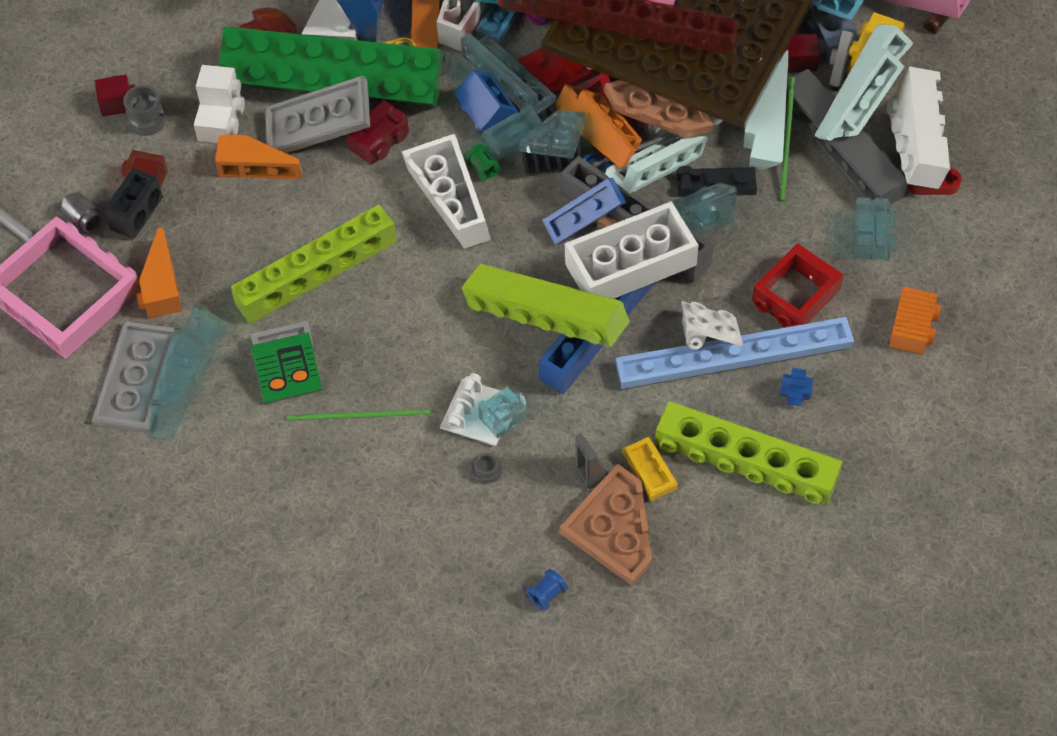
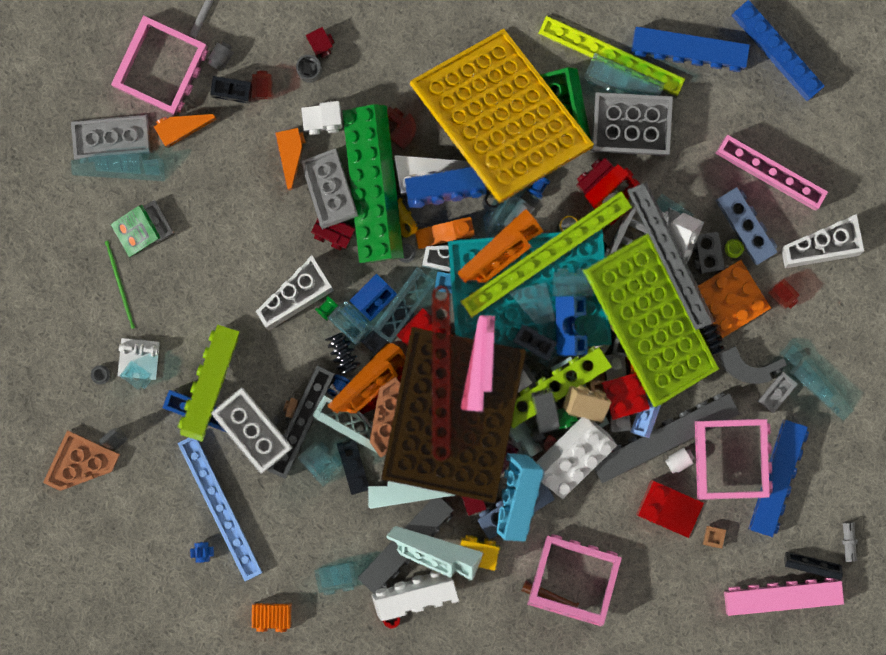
camera: 75 degrees right, 30 degrees up
(314, 264) = (216, 223): lime brick -> none
(546, 589) = (26, 433): blue bush -> none
(555, 135) = (347, 355): clear light blue wing -> none
(584, 211) = (292, 388): plate -> none
(650, 468) = (123, 474): yellow plate -> none
(703, 322) = (231, 489): white hinge -> none
(739, 440) = (146, 581): lime brick -> none
(787, 139) = (395, 507): bright green piece -> none
(809, 266) = (261, 519): red window -> none
(840, 58) = (467, 530): light grey plate -> none

